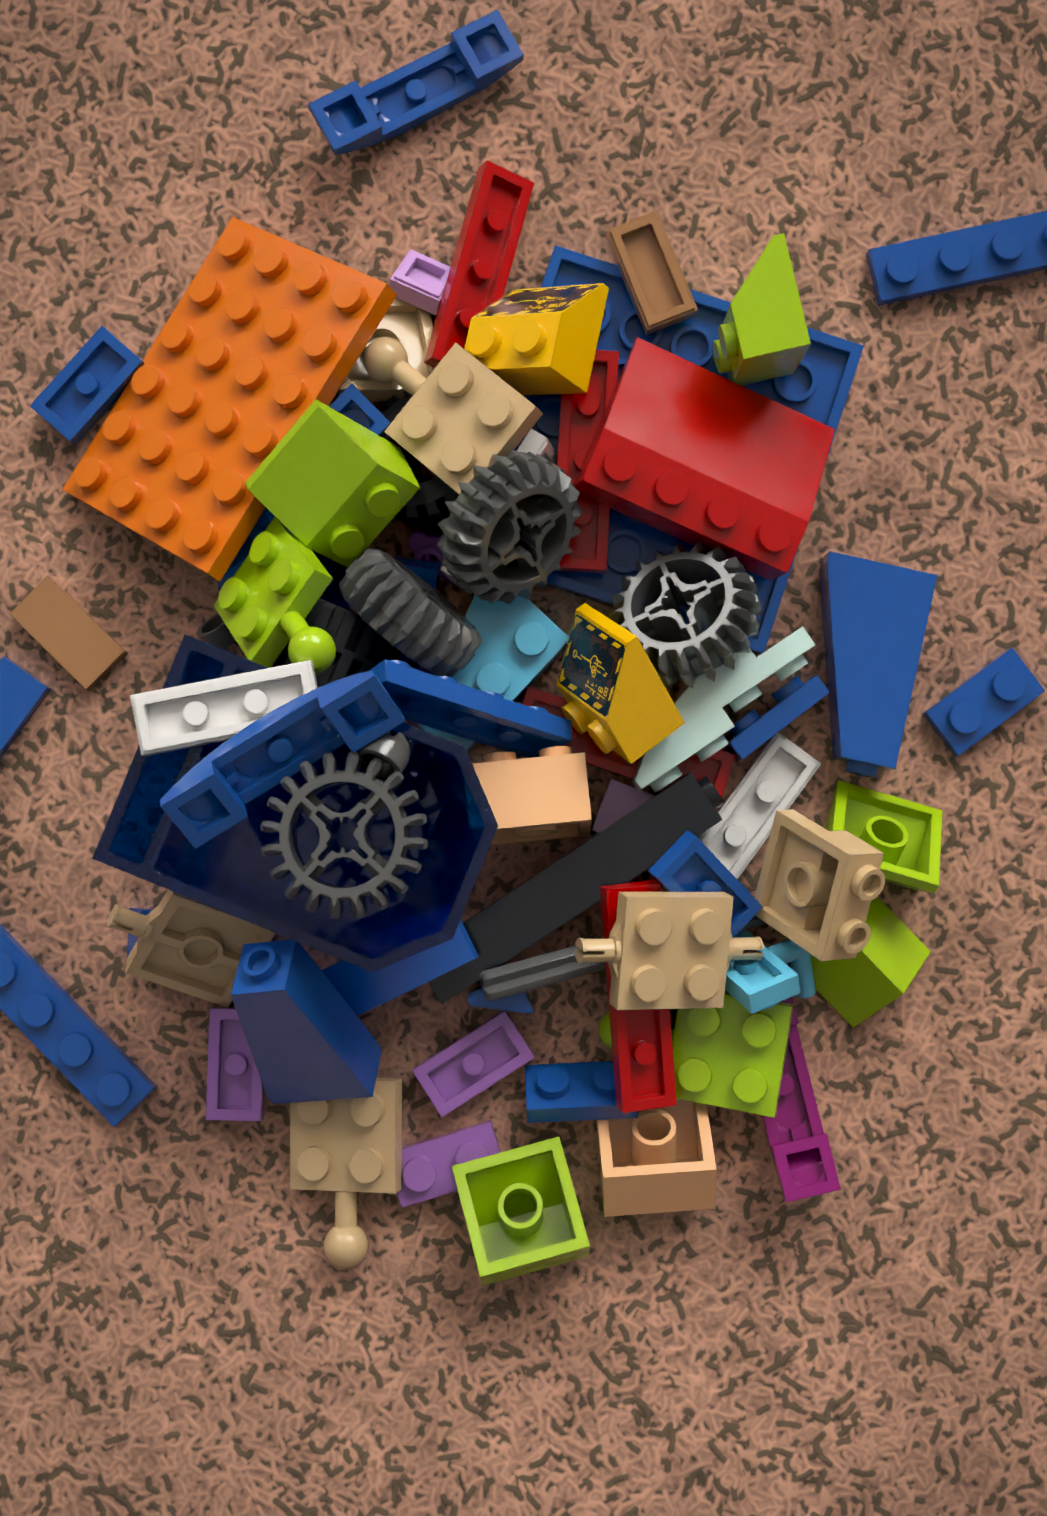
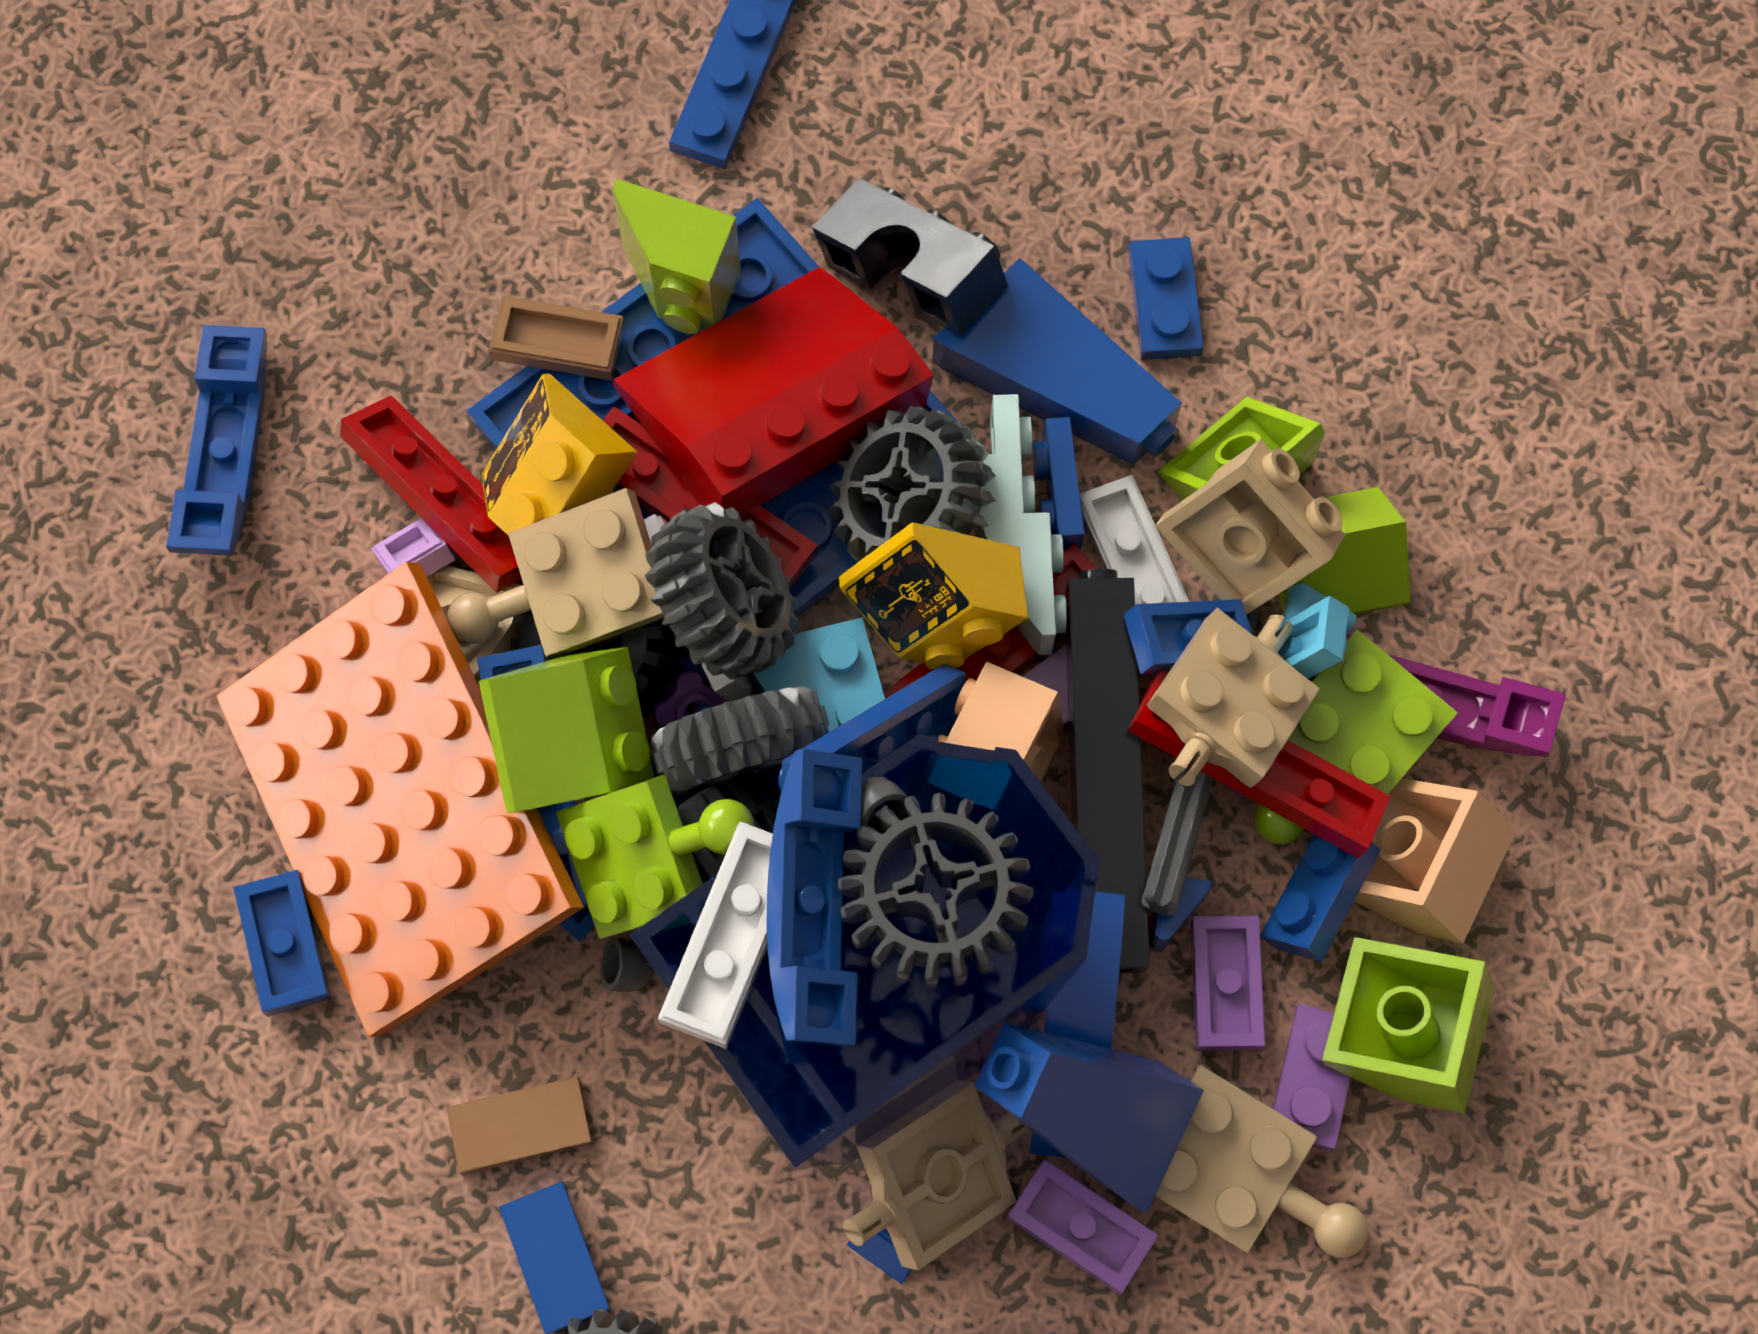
camera: 60 degrees left, 15 degrees down
(887, 533) = (948, 271): none -> arch

